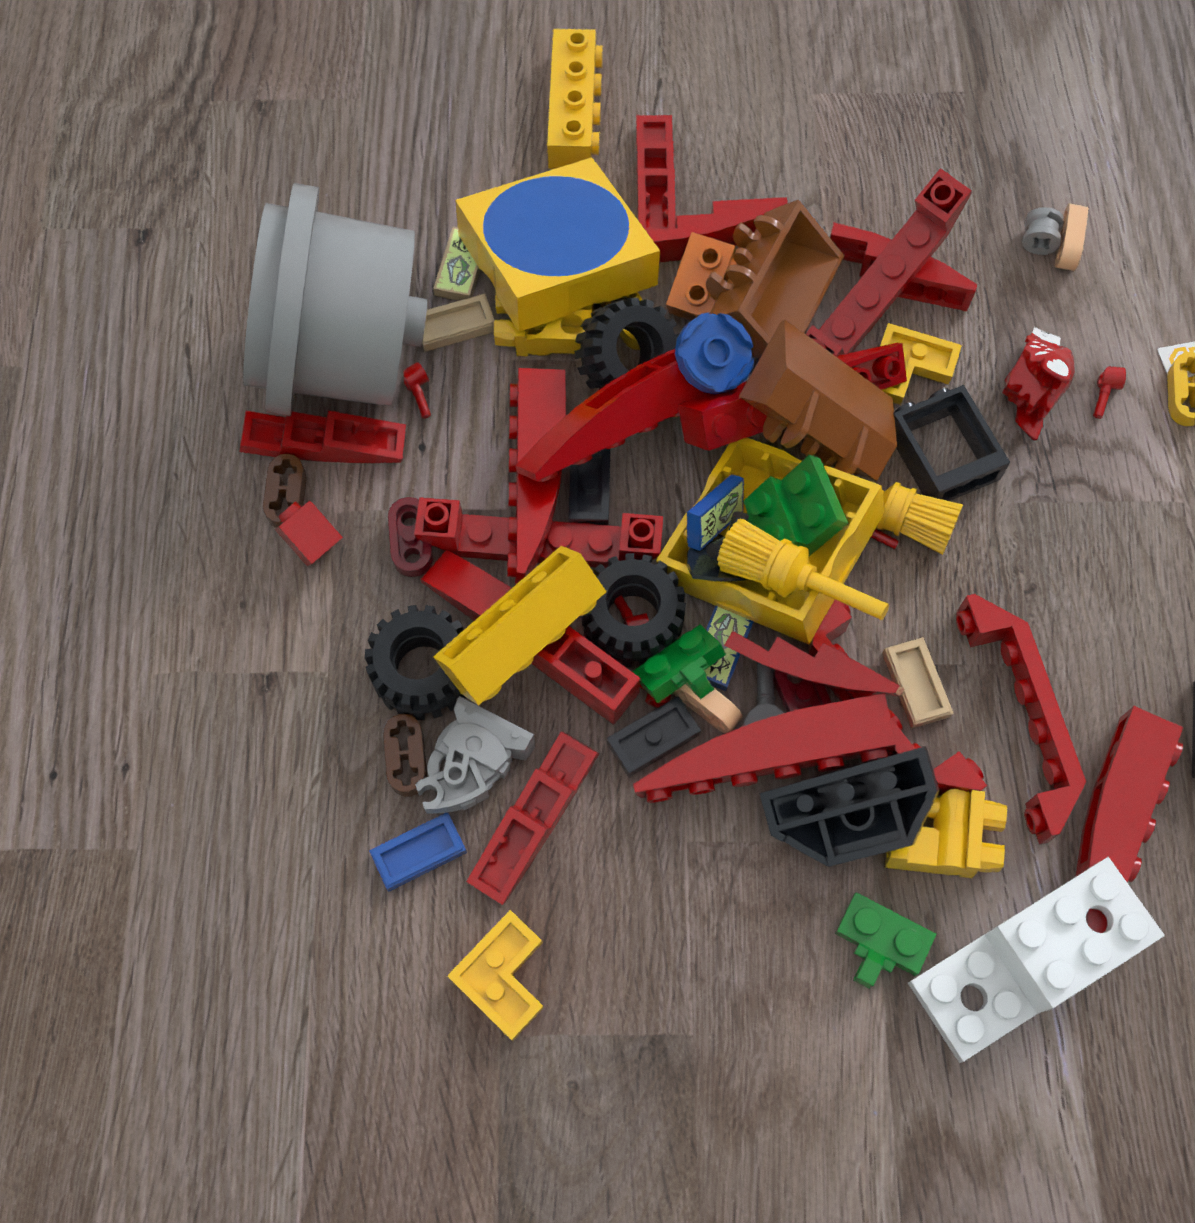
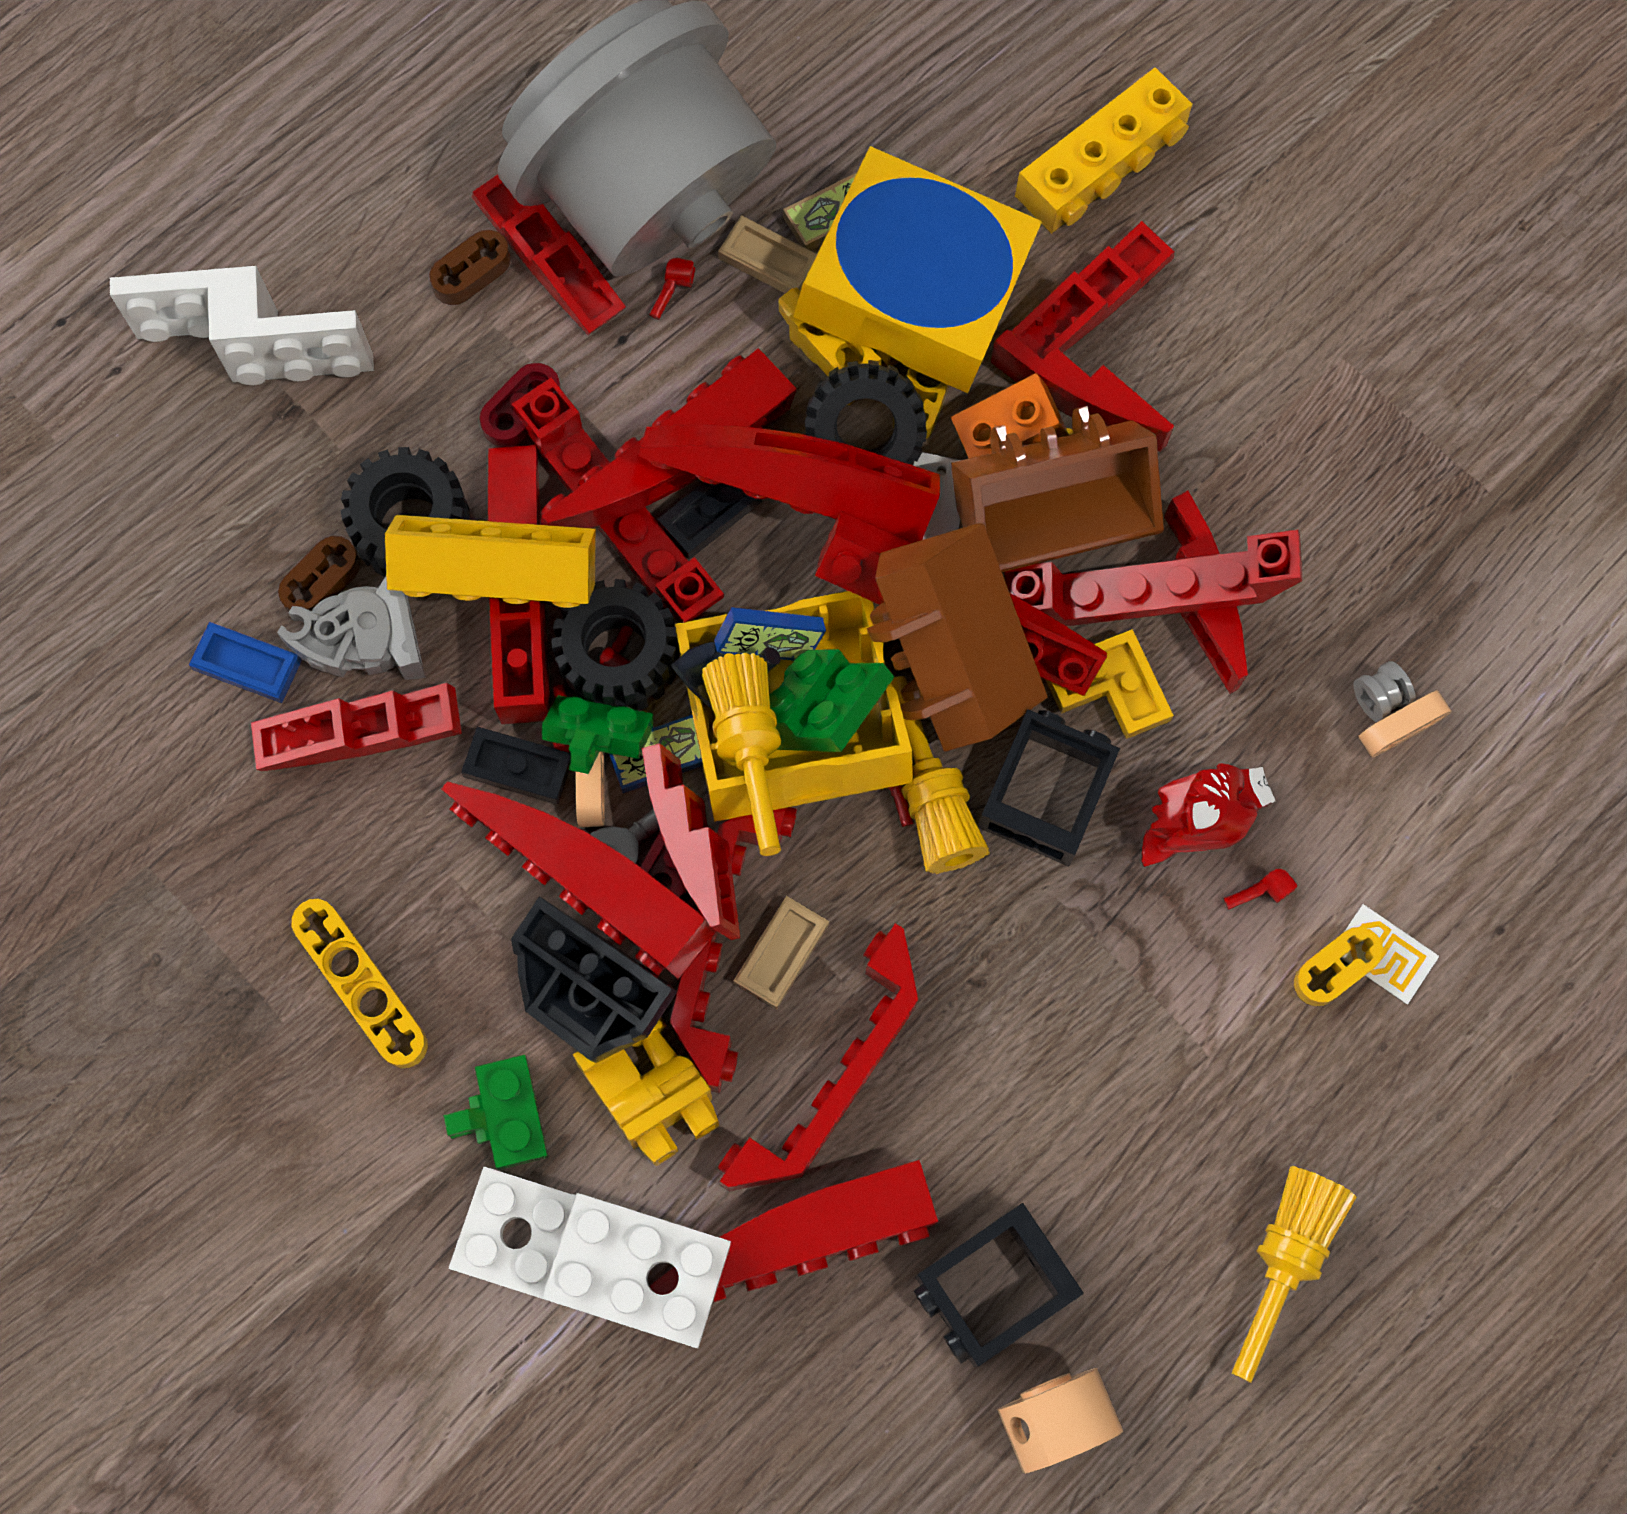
camera: 45 degrees right, 5 degrees up
(181, 647) = (242, 324): none -> white bracket
(307, 531) = (441, 317): red brick -> none
(488, 978) = (182, 811): yellow plate -> none
(712, 967) = (355, 986): none -> yellow beam
(714, 353) = (913, 495): blue tile -> none

